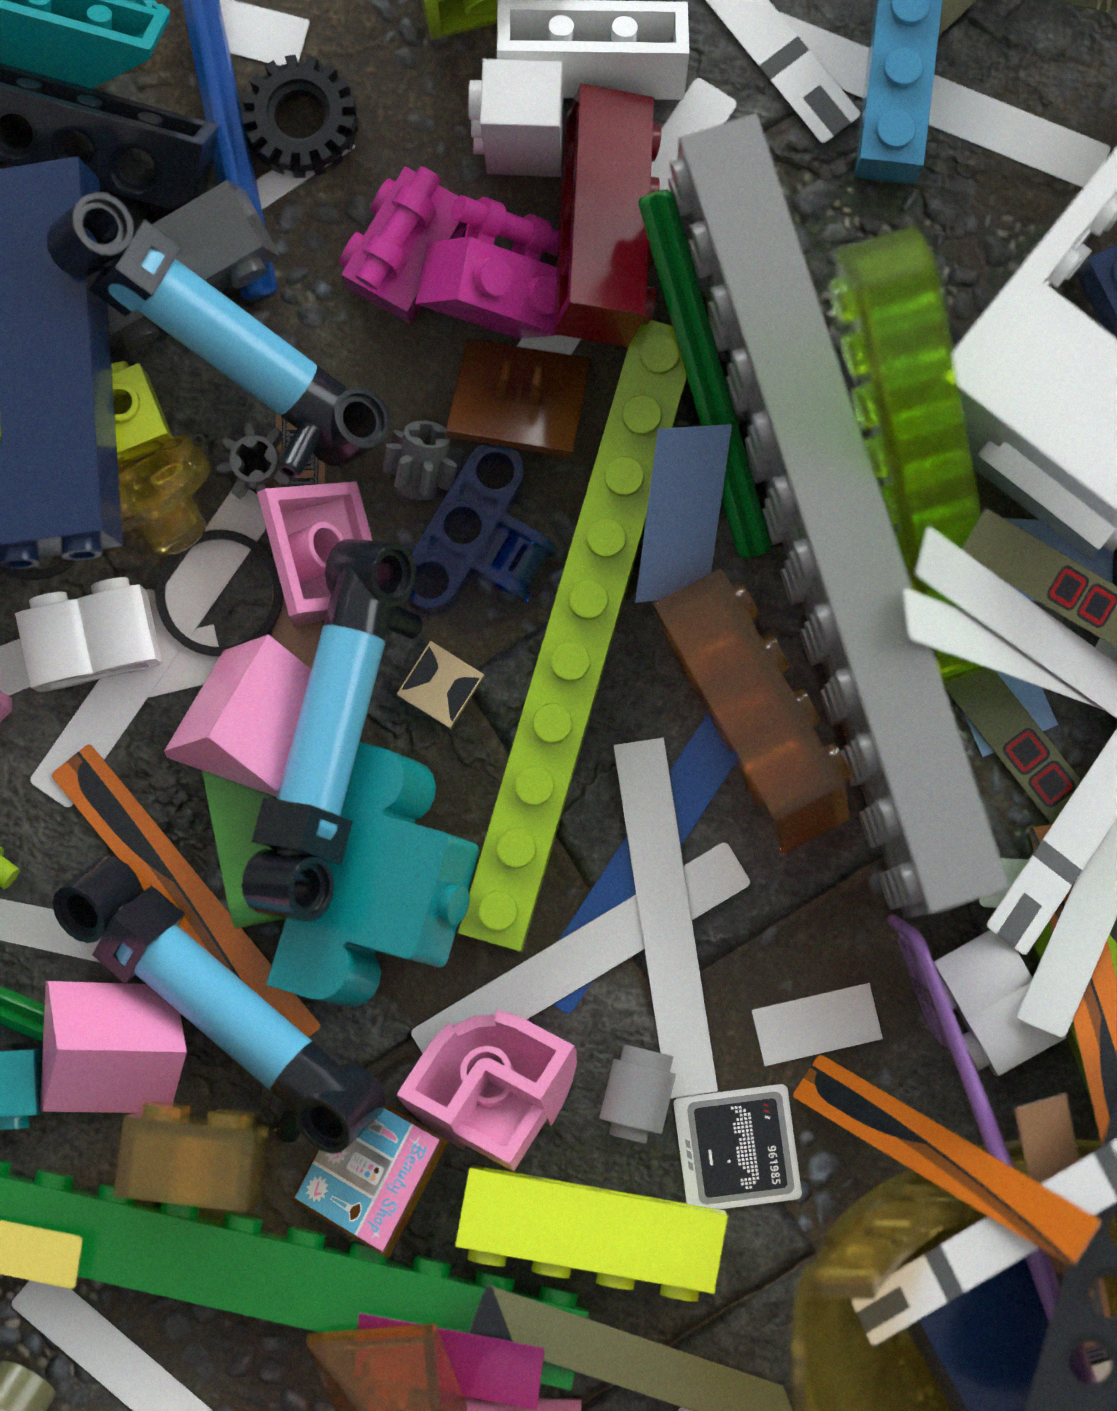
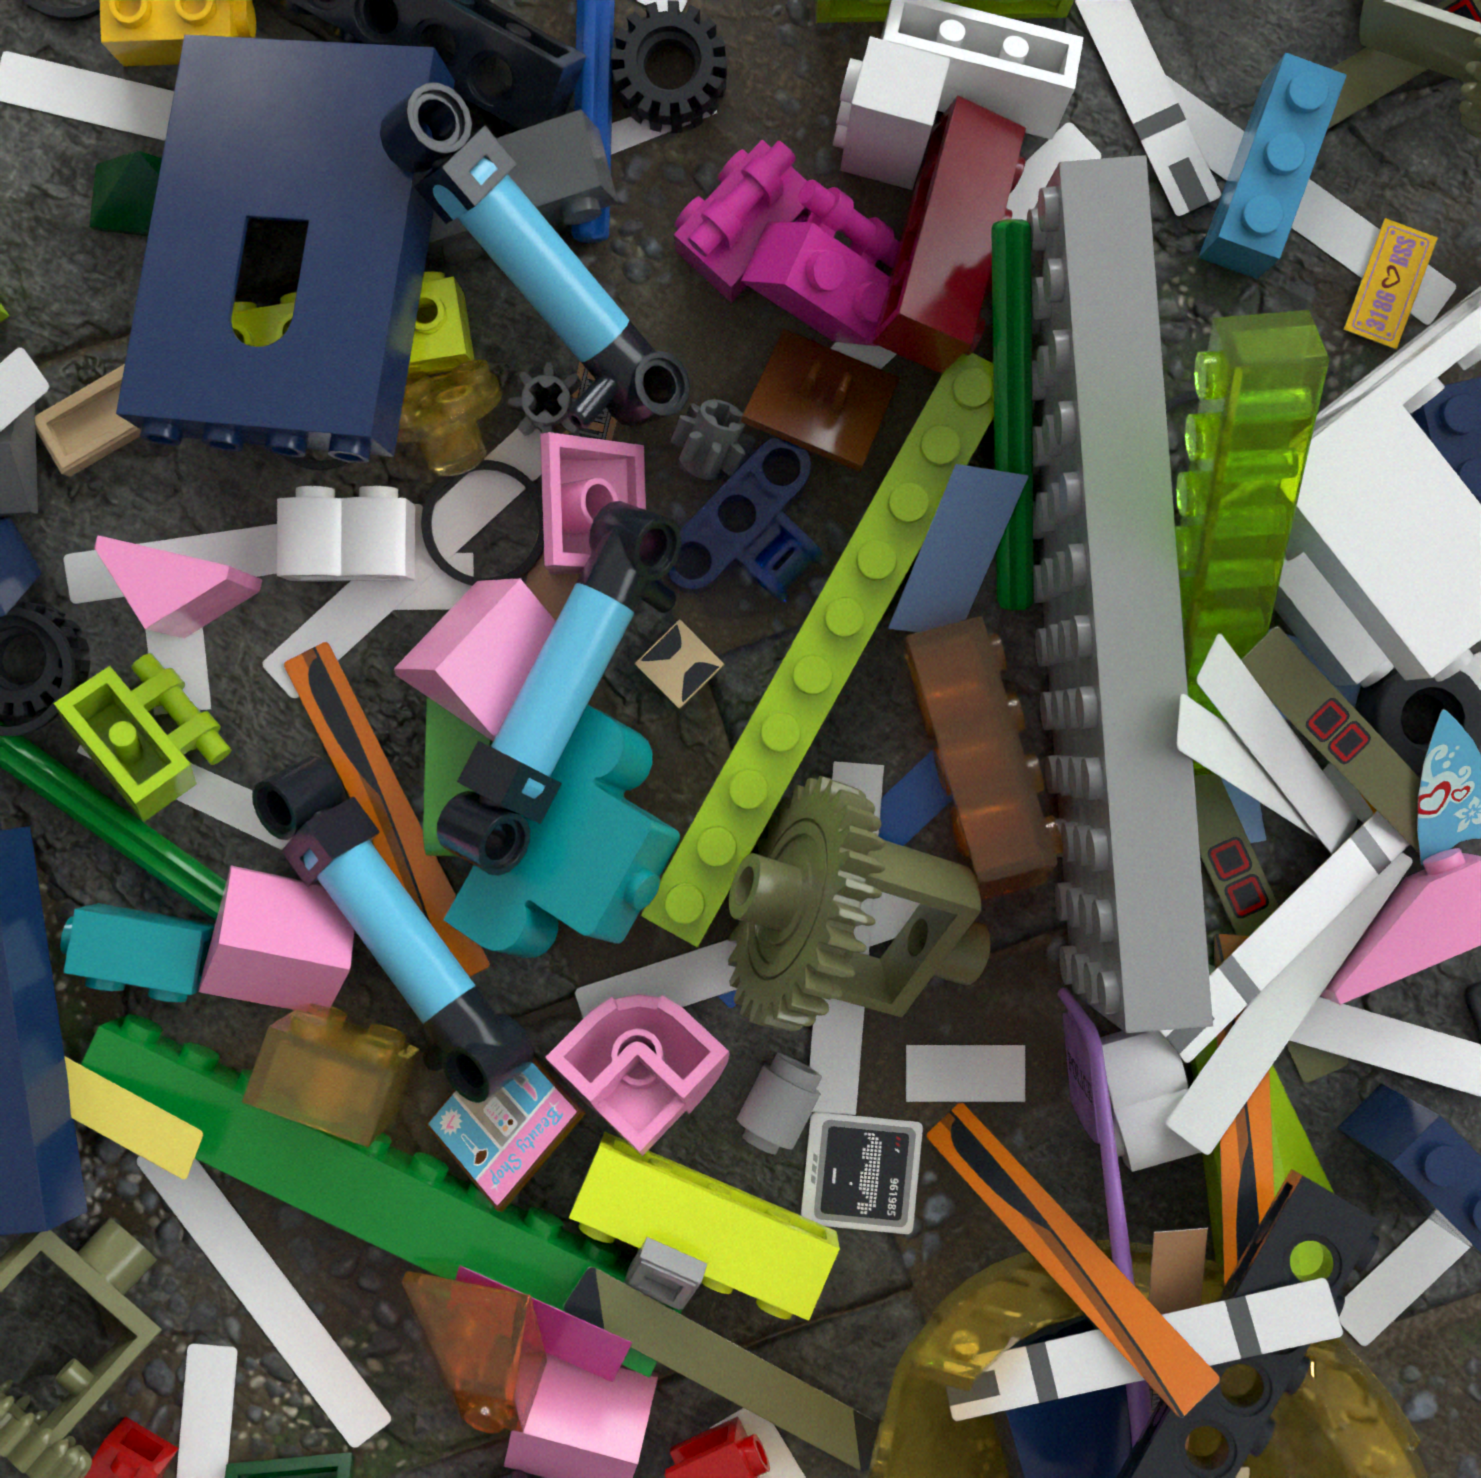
camera: 10 degrees right, 5 degrees up
(562, 1278) = (665, 1274): none -> light grey tile
(608, 886) = (806, 898): none -> olive piece
(1045, 159) = (1390, 283): none -> yellow sticker

